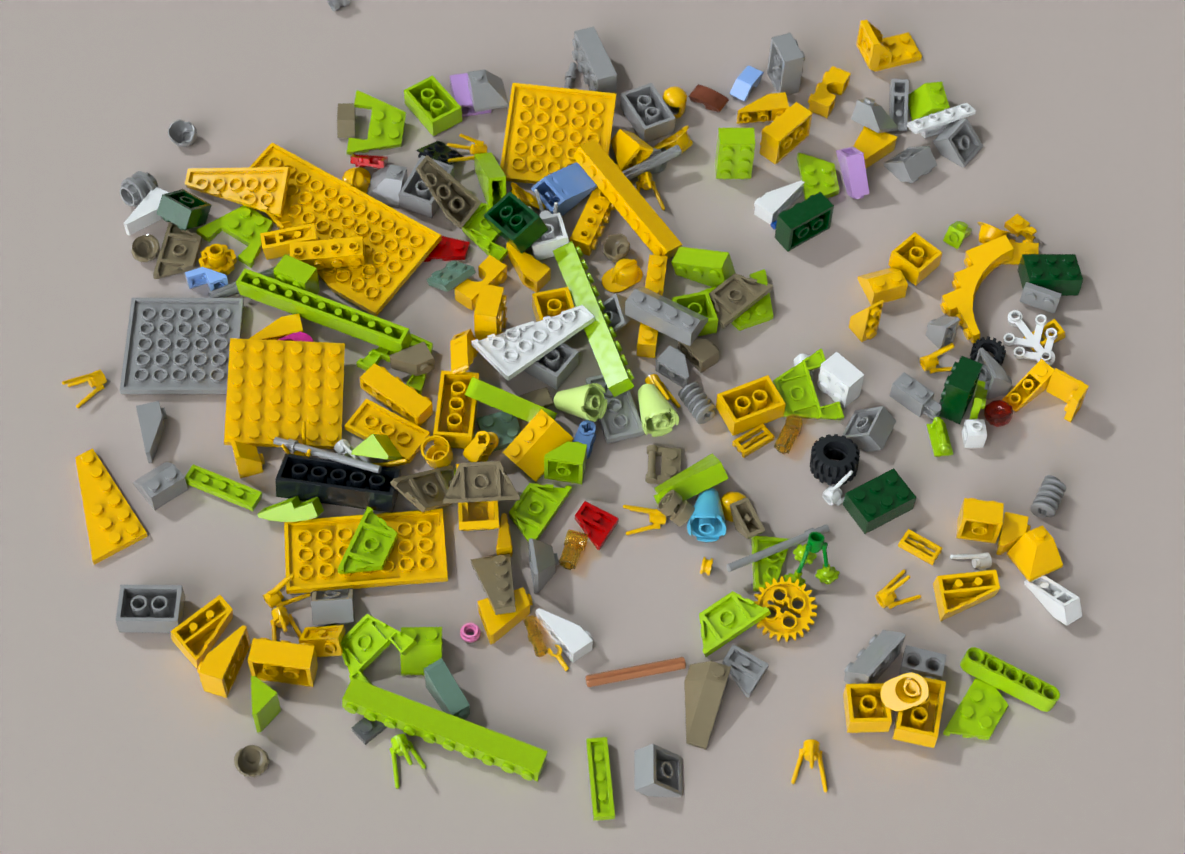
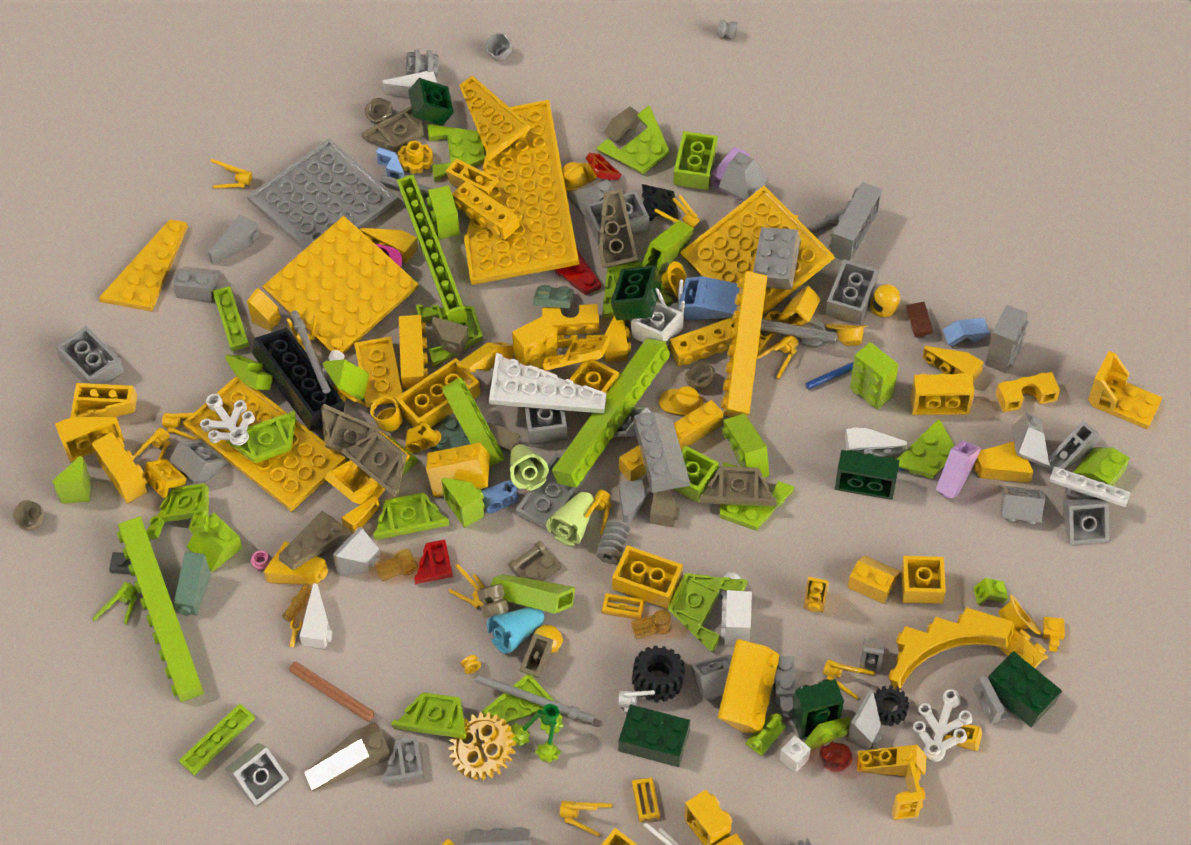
camera: 50 degrees right, 0 degrees up
(327, 557) = (237, 435): none -> white plant
(526, 290) = (579, 350): none -> yellow wing
(580, 122) = (777, 256): none -> light grey brick
(696, 180) = (829, 376): none -> blue bar
(904, 413) = (748, 686): none -> yellow slope

